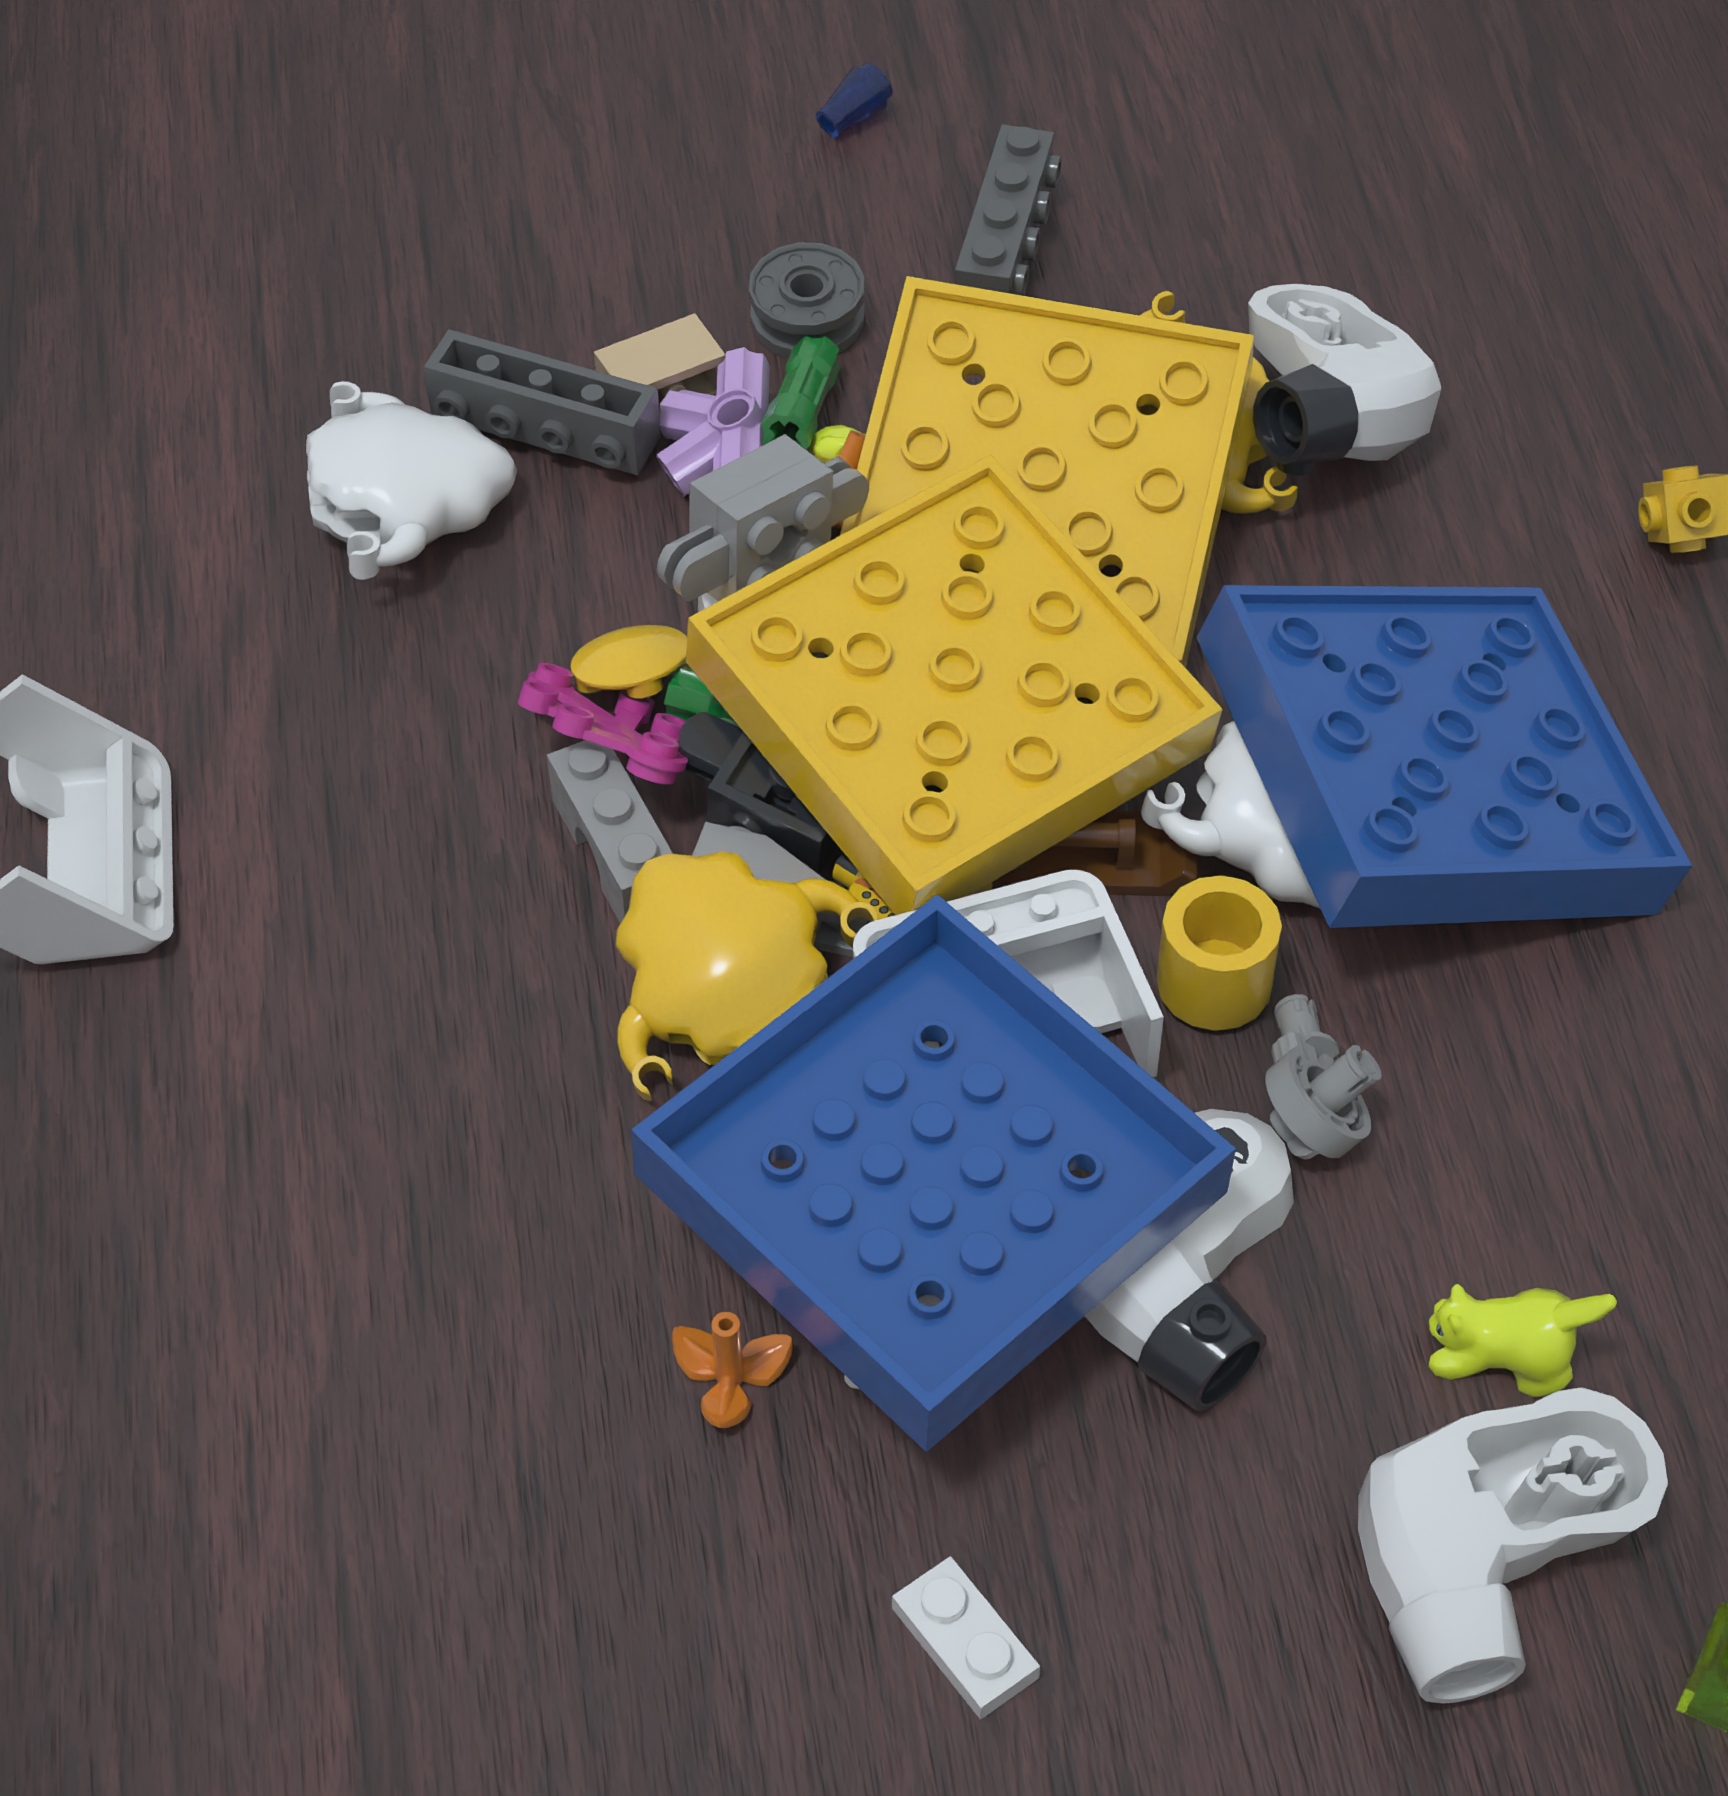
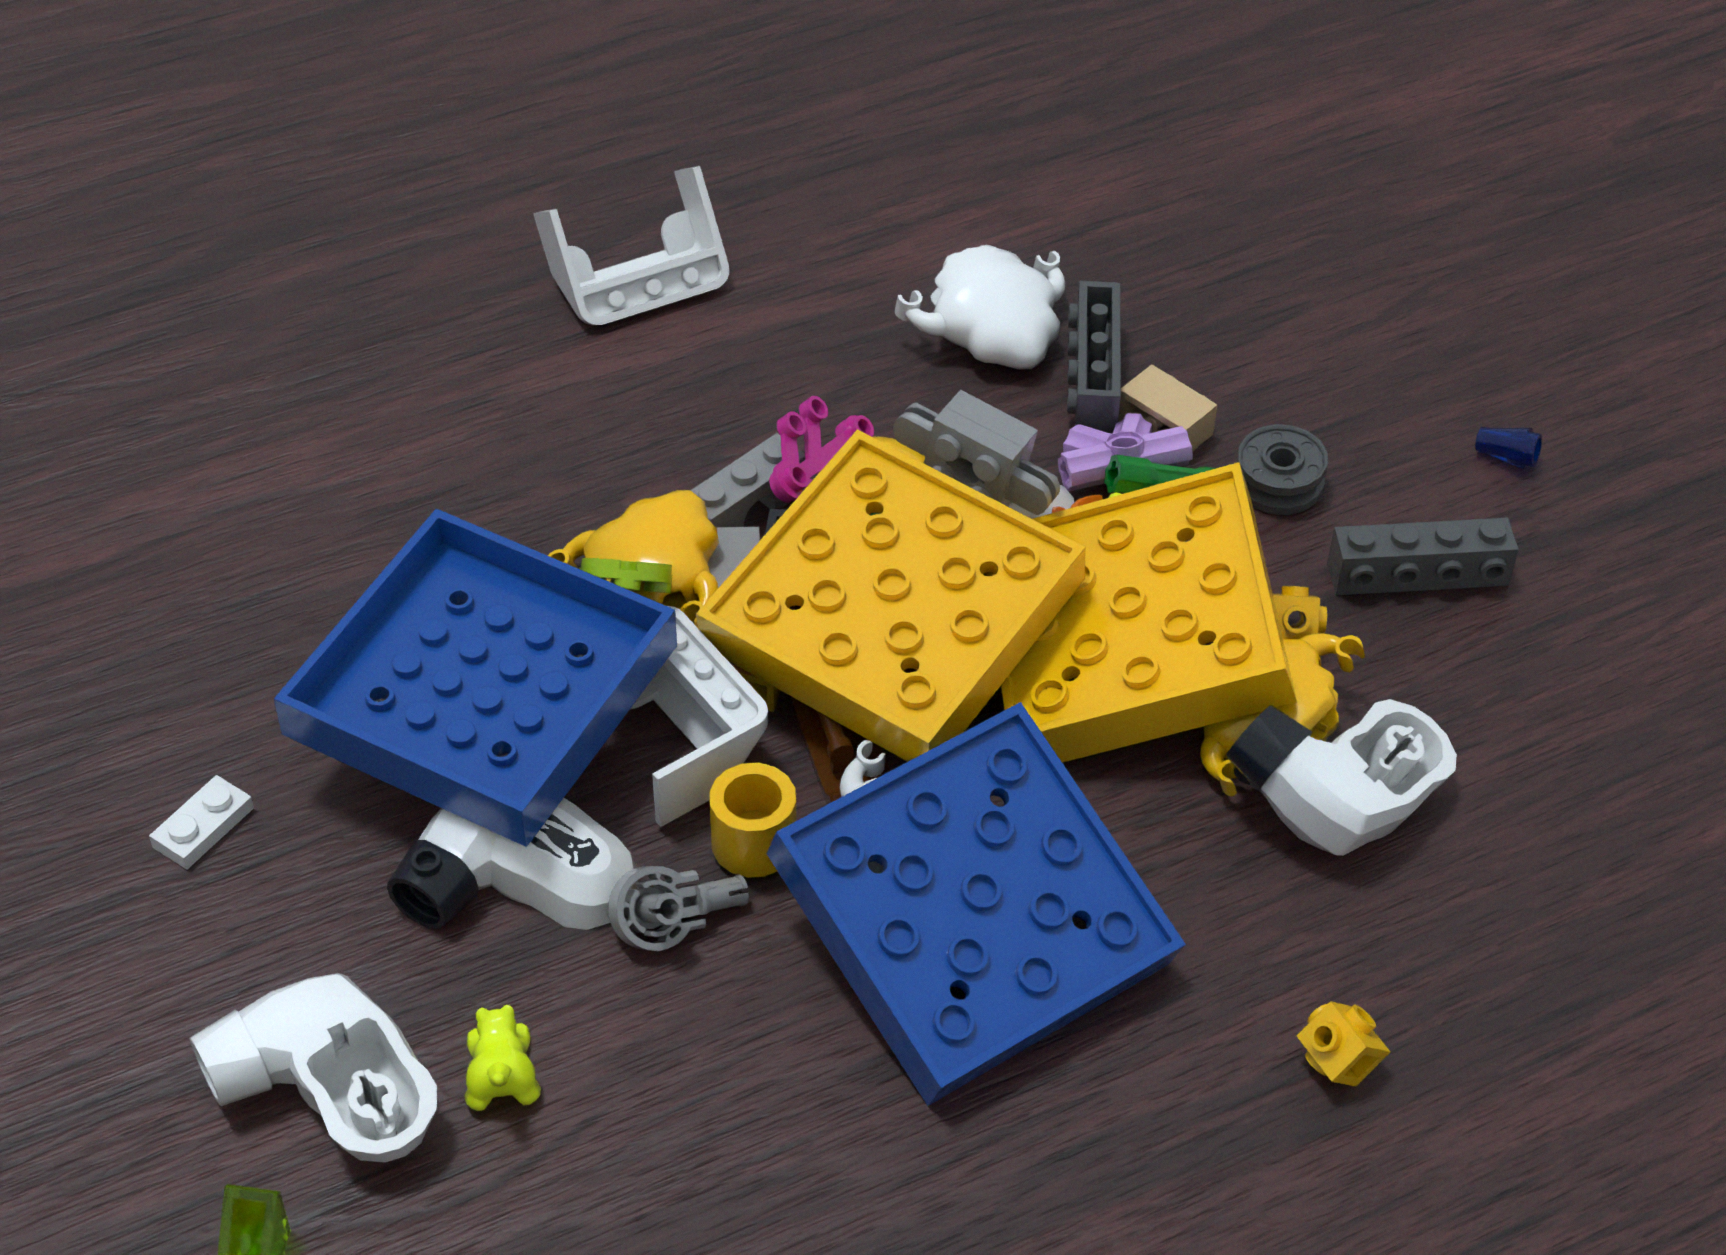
camera: 70 degrees right, 5 degrees down
(814, 947) = (629, 575): none -> lime plate

